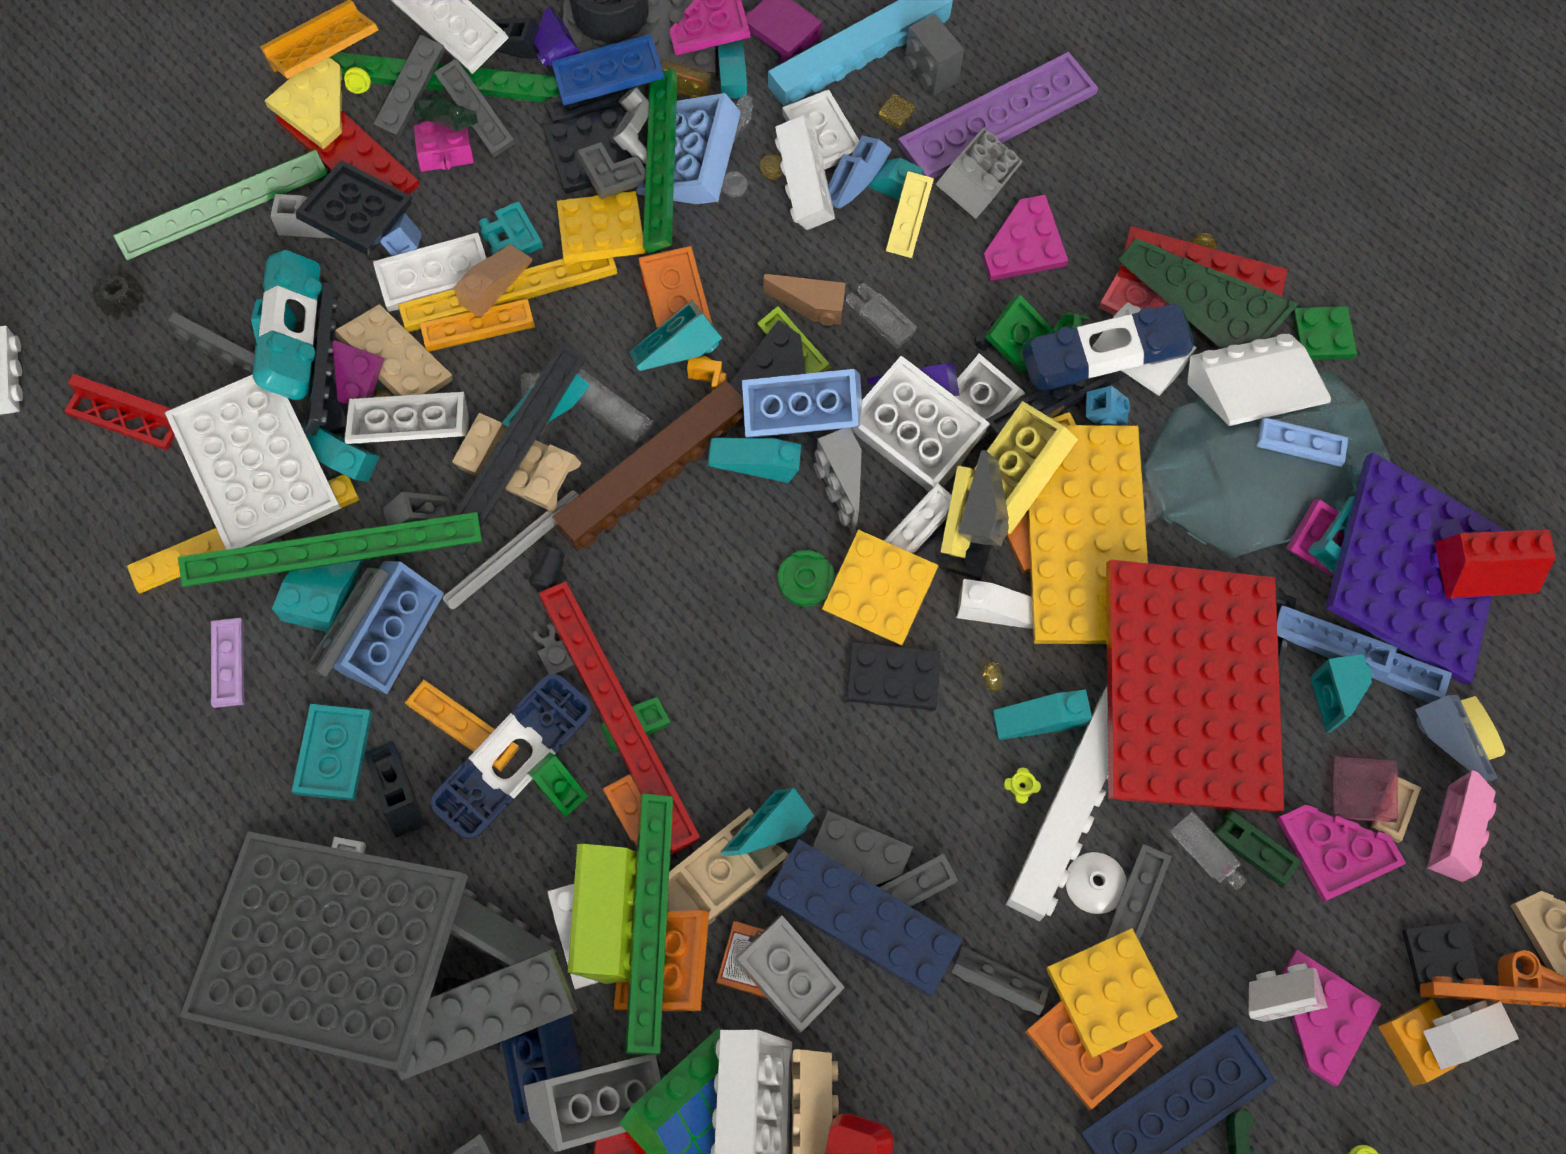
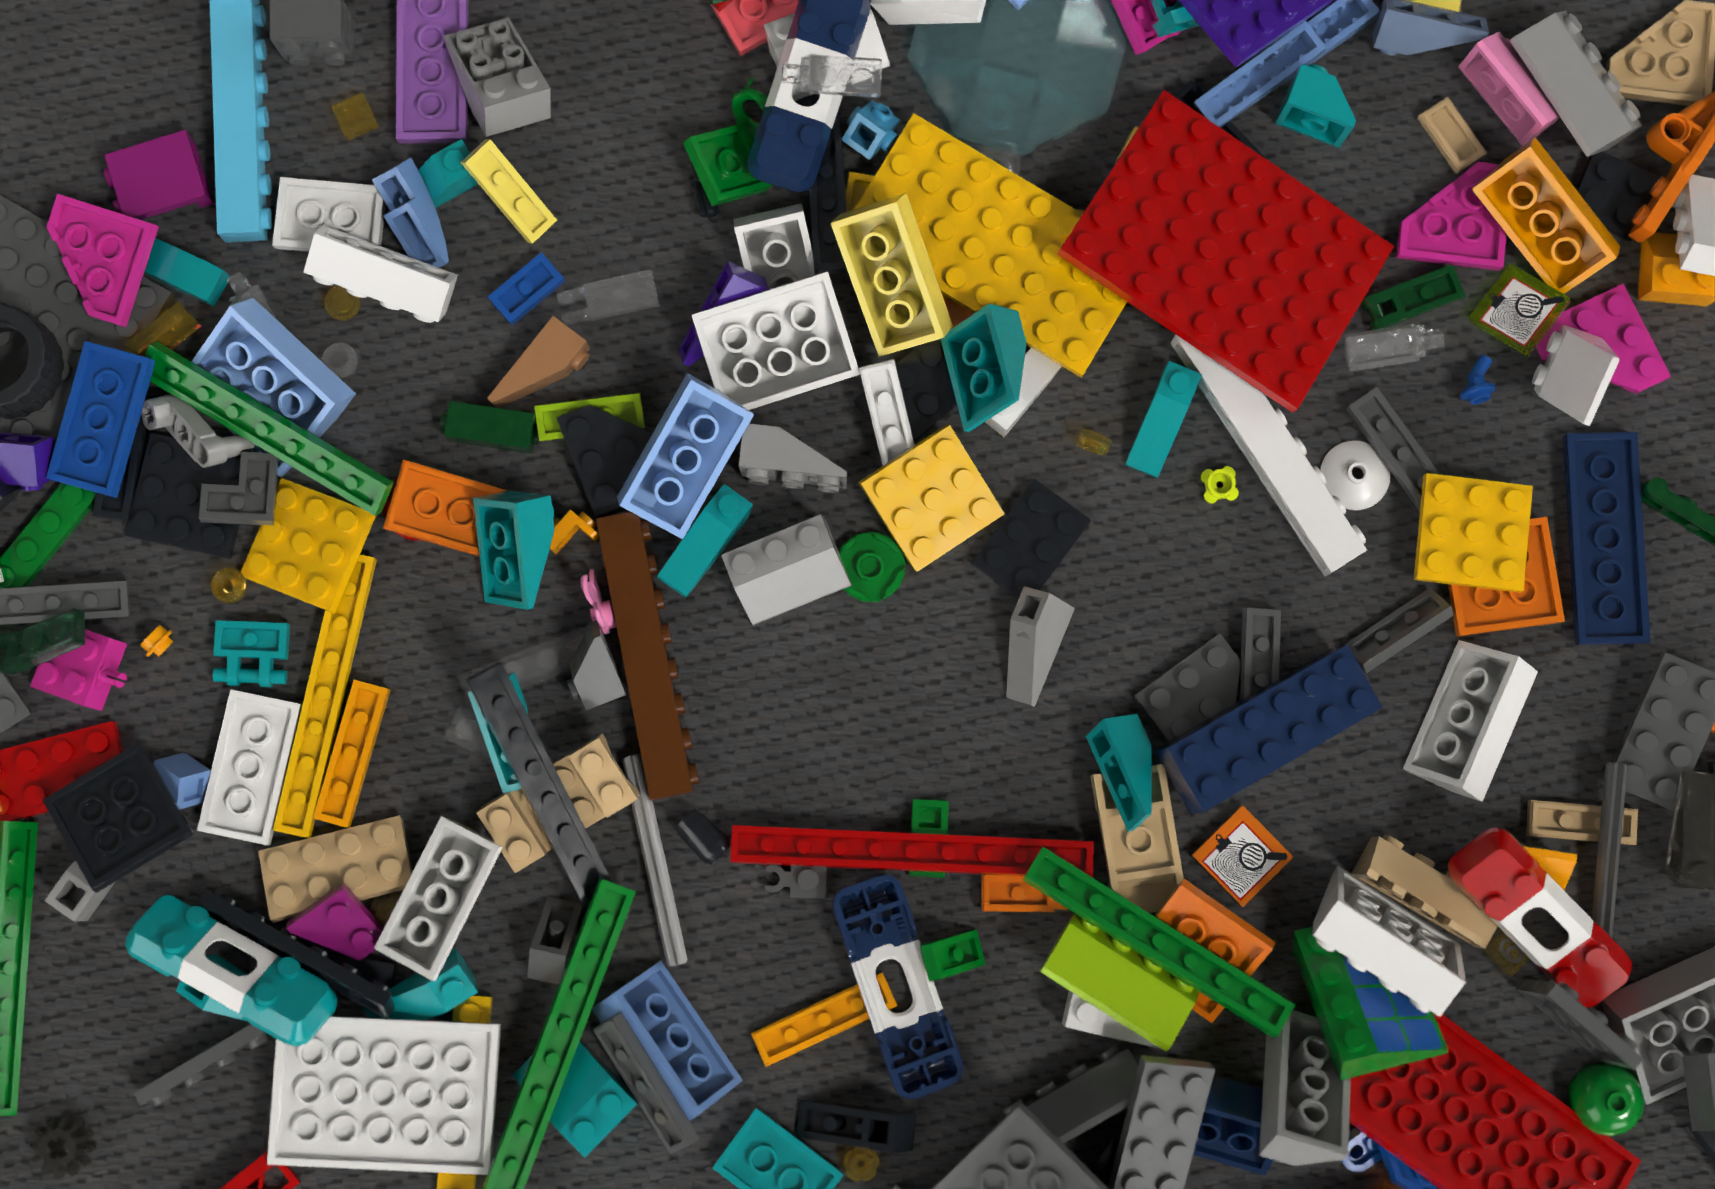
camera: 60 degrees left, 15 degrees up
(367, 816) = (866, 1172): none -> clear yellow plate
(485, 178) = (157, 641): none -> light orange plate
(490, 279) = (308, 706): medium nougat slope -> none
(546, 198) = (221, 589): none -> clear yellow plate
(622, 436) = (594, 671): none -> slope
(669, 411) = (602, 610): none -> bright pink plate
(746, 289) = (489, 427): none -> dark green brick
(768, 519) = (786, 569): none -> light grey slope
(789, 974) = (1278, 831): light grey plate -> none
(825, 713) = (1033, 643): none -> light grey slope
(853, 263) = (526, 288): none -> blue plate
(953, 542) = (908, 364): light yellow plate -> none
(968, 1079) = (1471, 719): none -> white slope
(985, 565) = (985, 363): none -> teal slope
(986, 510) = (925, 337): dark grey slope -> none
(1026, 242) = (611, 80): dark pink plate -> none
(1124, 350) = (836, 75): none -> clear hinge
(1222, 935) = (1477, 388): none -> blue plate
(1304, 932) = (1519, 310): none -> tile
(1365, 789) = (1419, 152): clear pink plate -> none
(1386, 909) = (1546, 218): none -> light orange slope
(1501, 872) = (1577, 82): none -> light grey slope

